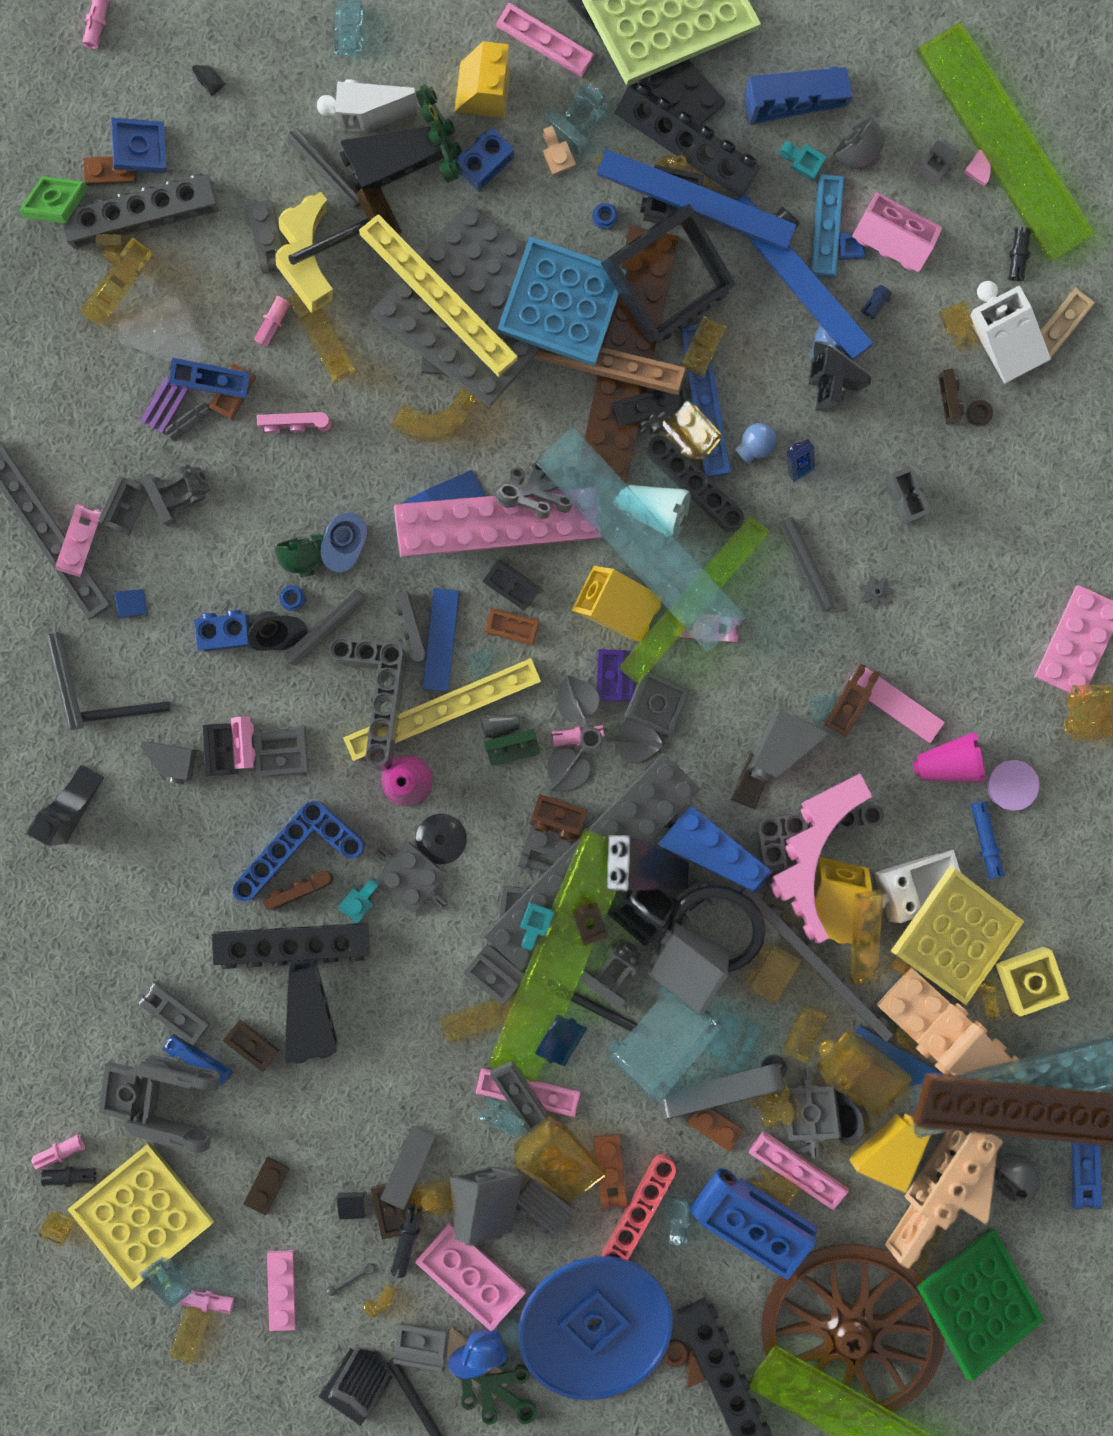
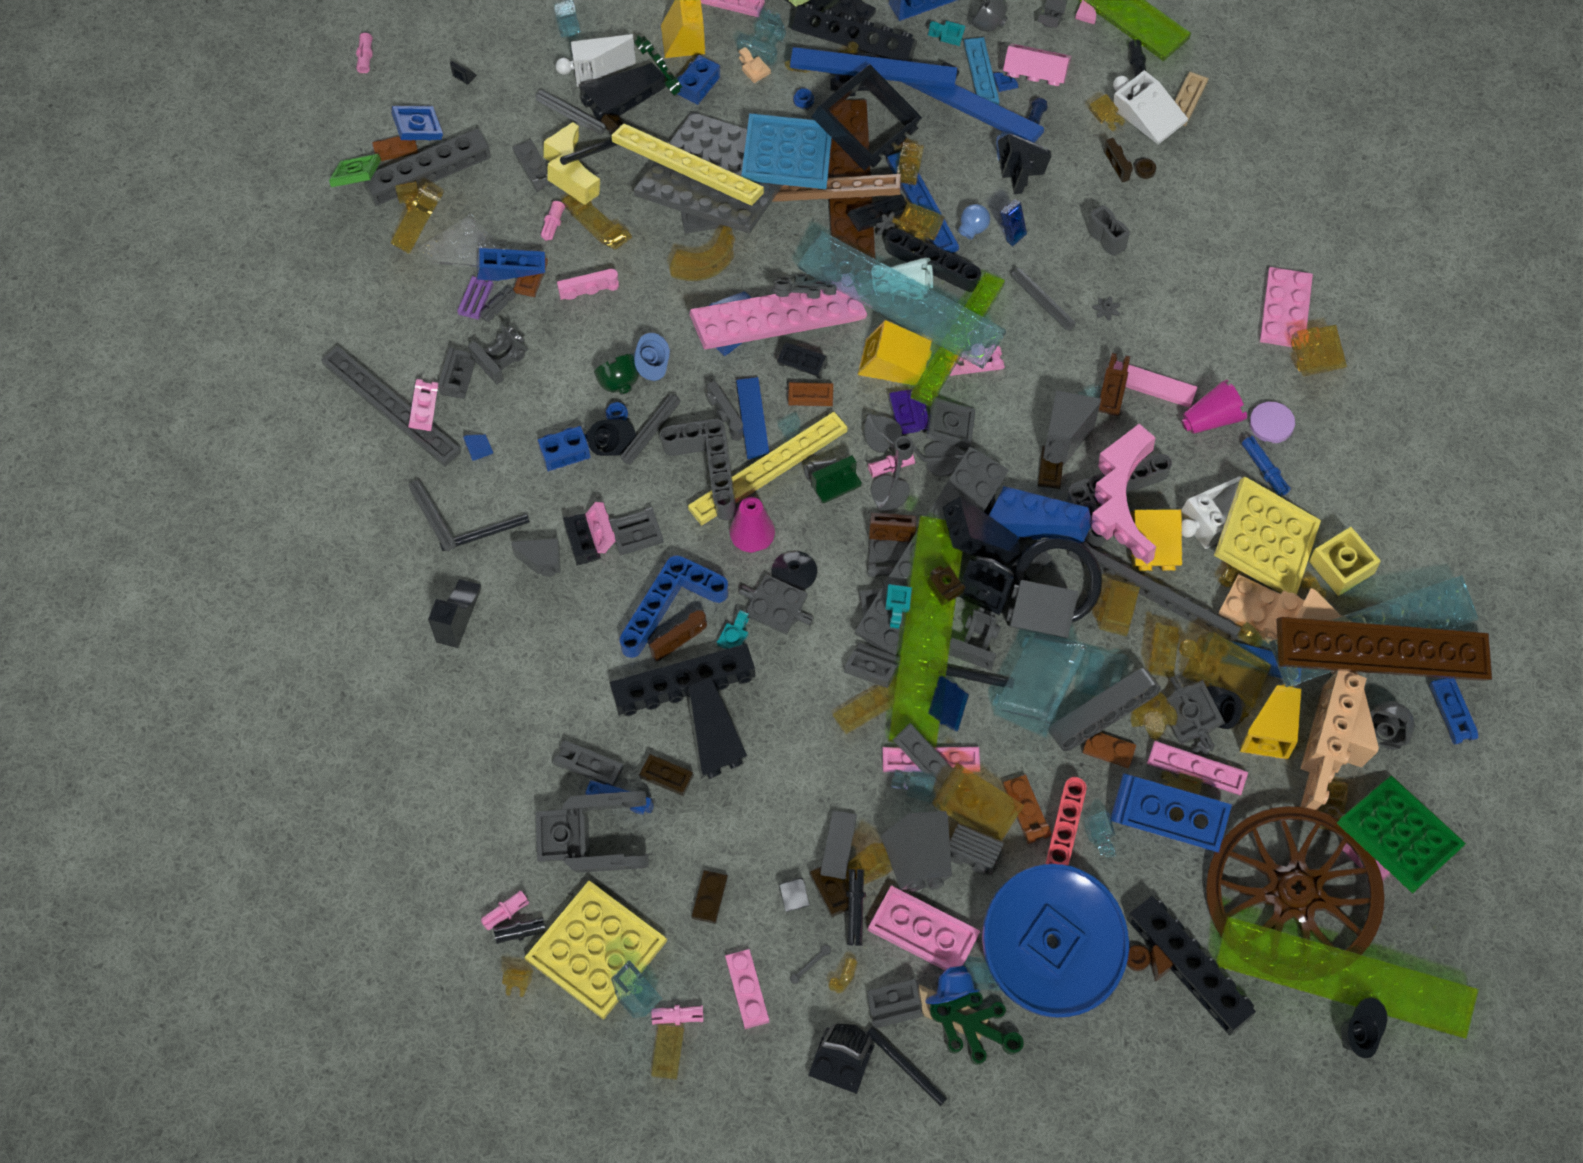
camera: 15 degrees left, 25 degrees down
(866, 936) = (1189, 553): clear yellow tile -> none

